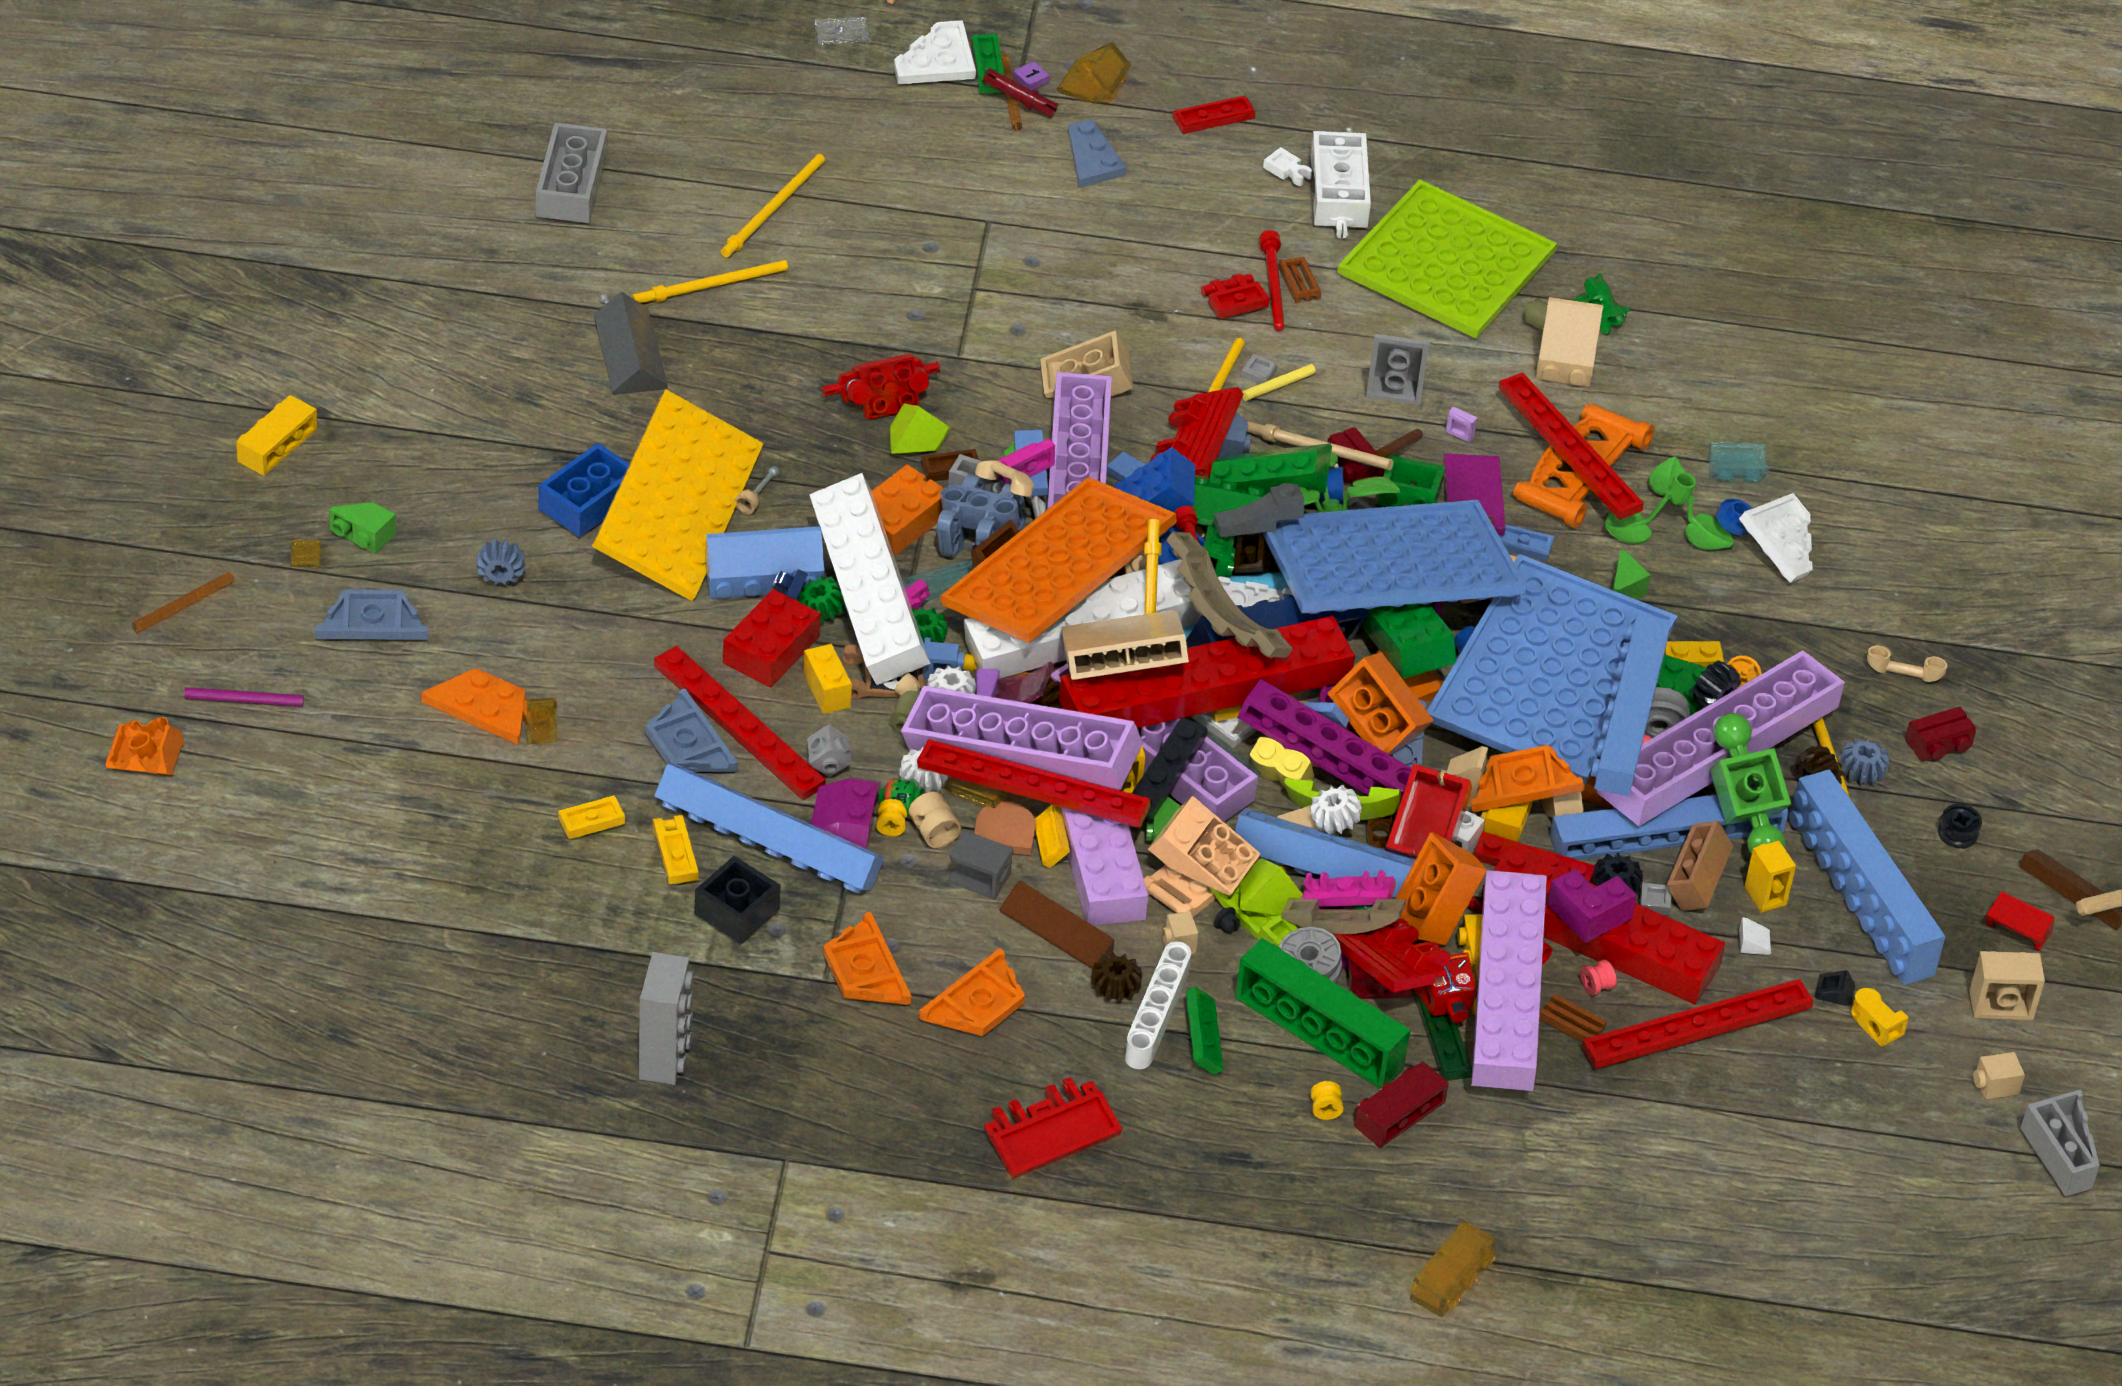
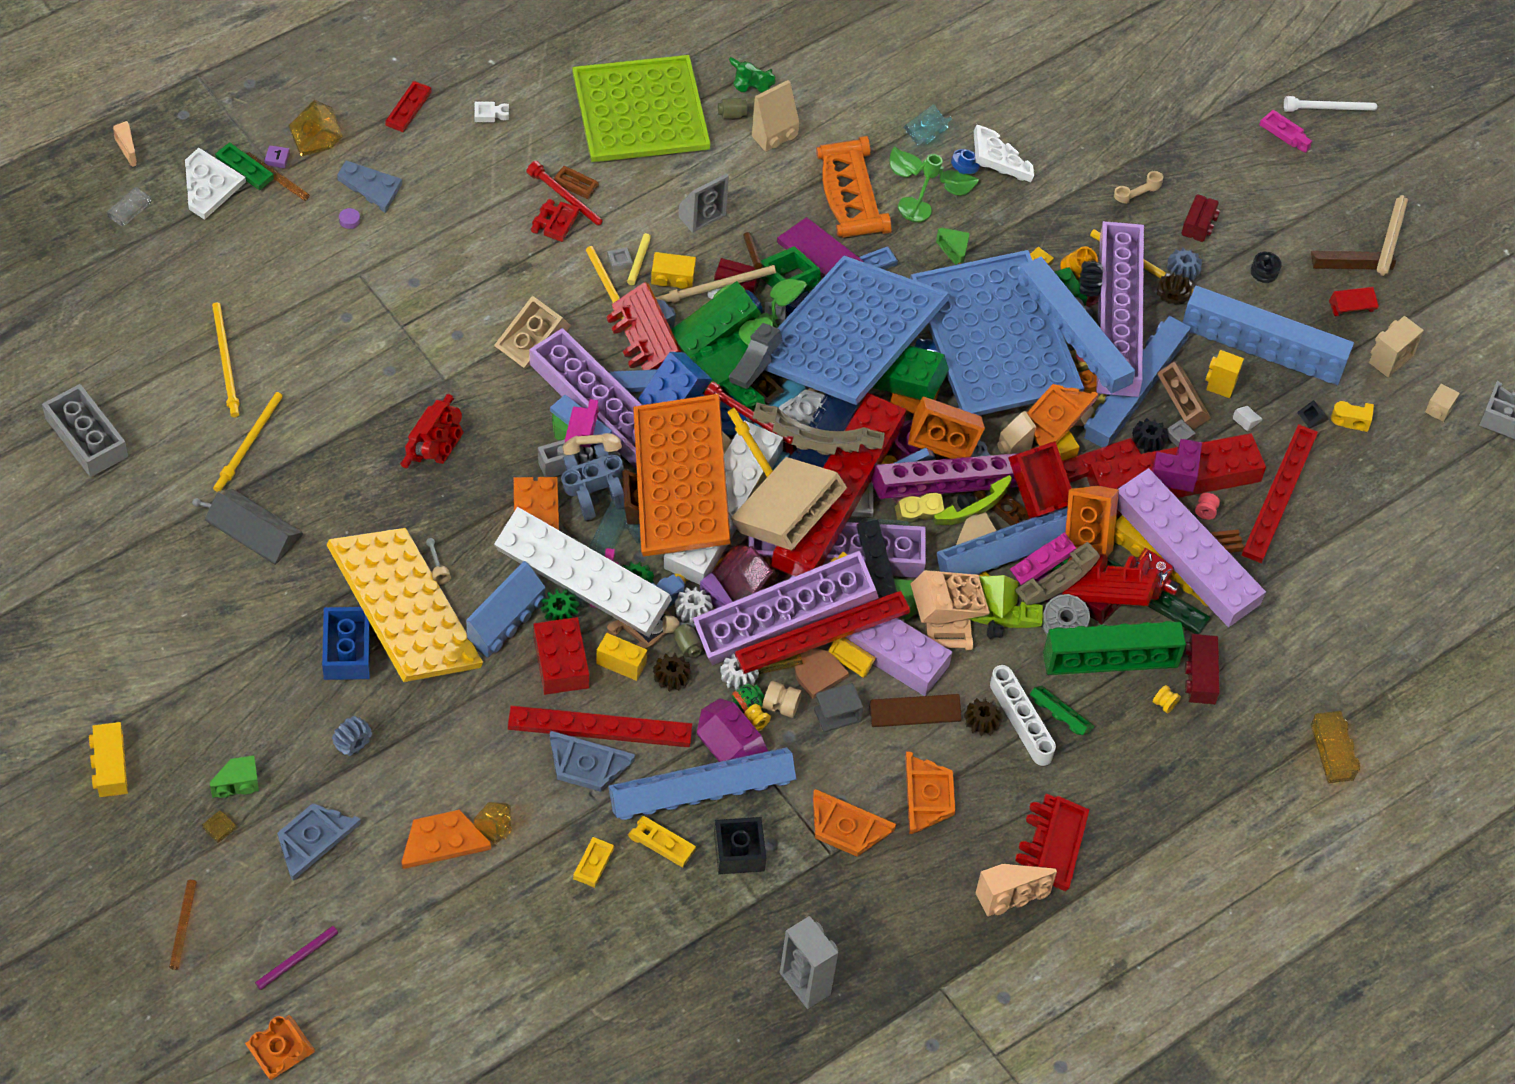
camera: 45 degrees left, 10 degrees up
(791, 583) = (539, 611): dark blue tile -> none
(829, 750) = (677, 704): light grey brick -> none
(861, 724) = (672, 672): none -> dark brown gear
(916, 431) = (482, 451): lime slope -> none
(938, 465) = (523, 457): reddish brown tile -> none
(952, 1123) = (1013, 886): none -> light nougat slope
(1030, 98) = (297, 172): dark red pin -> none
(1035, 168) = (349, 218): none -> medium lavender tile
(1181, 928) = (984, 659): tan plate -> none
(1297, 409) = (673, 270): none -> yellow brick
(1336, 809) = (983, 518): white gear -> none
(1340, 180) = (548, 109): white brick -> none
(1461, 424) = (766, 211): lavender tile -> none
(1571, 446) = (842, 182): red plate -> none
(1745, 770) = (1172, 327): bright green brick -> none

